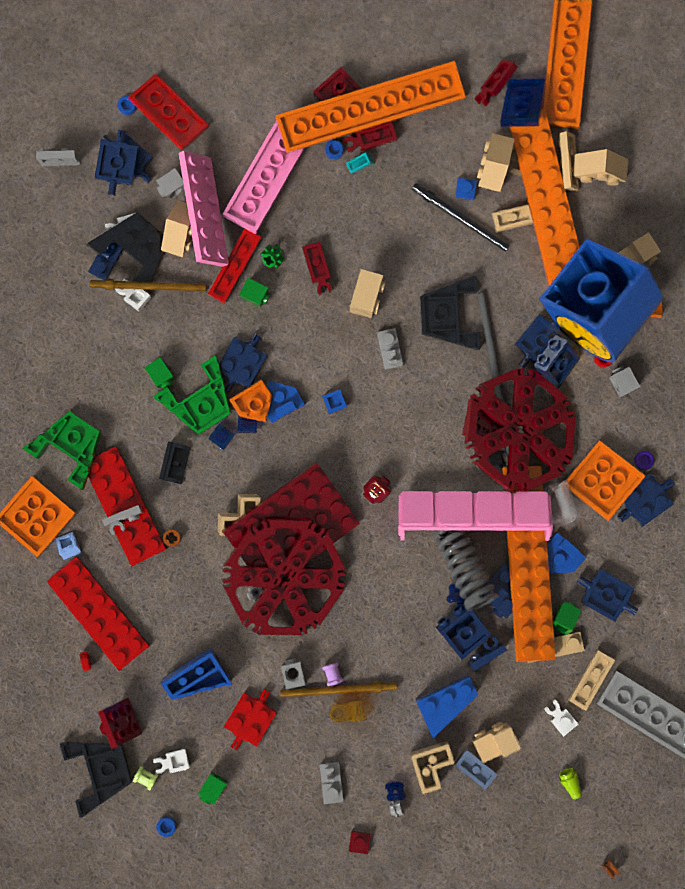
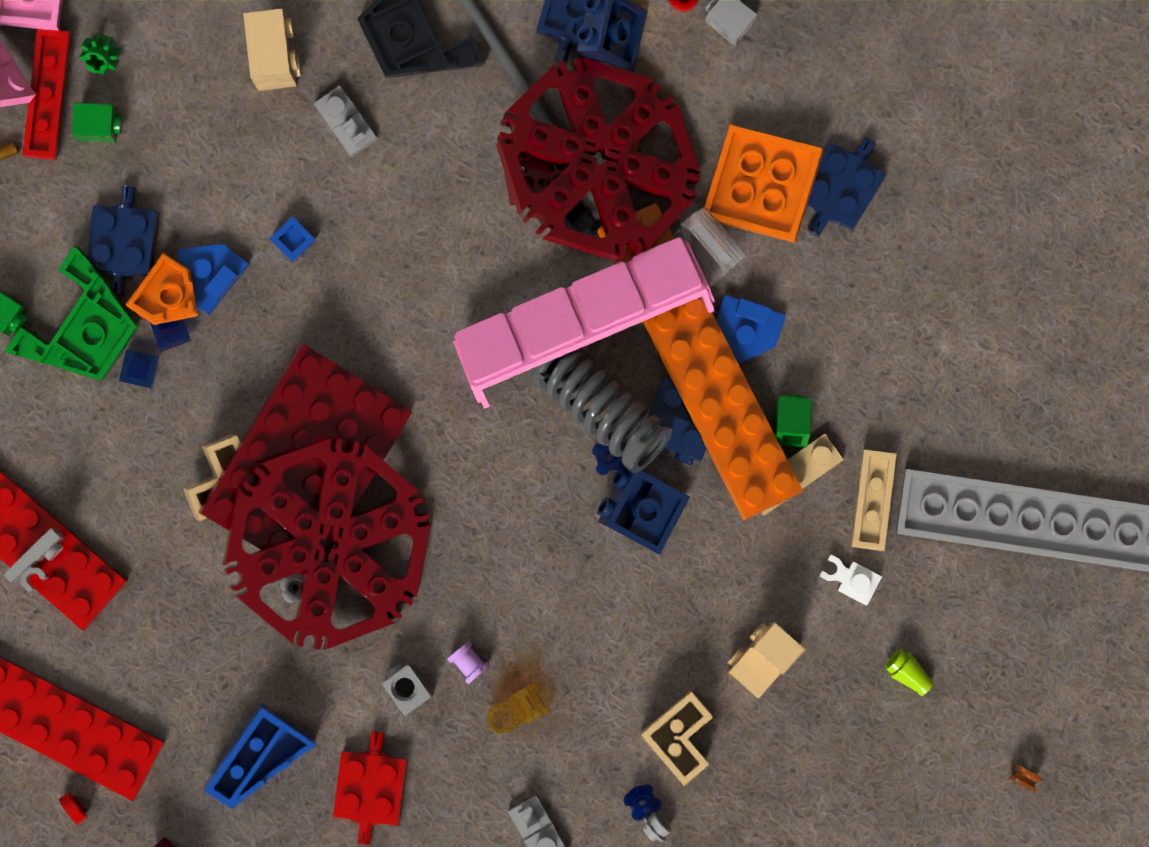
camera: 20 degrees left, 0 degrees up
(167, 542) = (131, 550): dark orange bush -> none
(174, 462) = (82, 440): black hinge -> none
(317, 266) = (176, 40): dark red plate -> none
(376, 687) = (545, 654): pearl gold bar -> none
(377, 489) = (416, 346): dark red head -> none
(446, 703) = (662, 632): blue wedge -> none
(475, 769) = (752, 714): sand blue plate -> none
(478, 659) = (687, 542): dark blue plate -> none
(607, 595) = (843, 359): dark blue plate -> none
(644, 460) = (813, 126): dark purple tile -> none

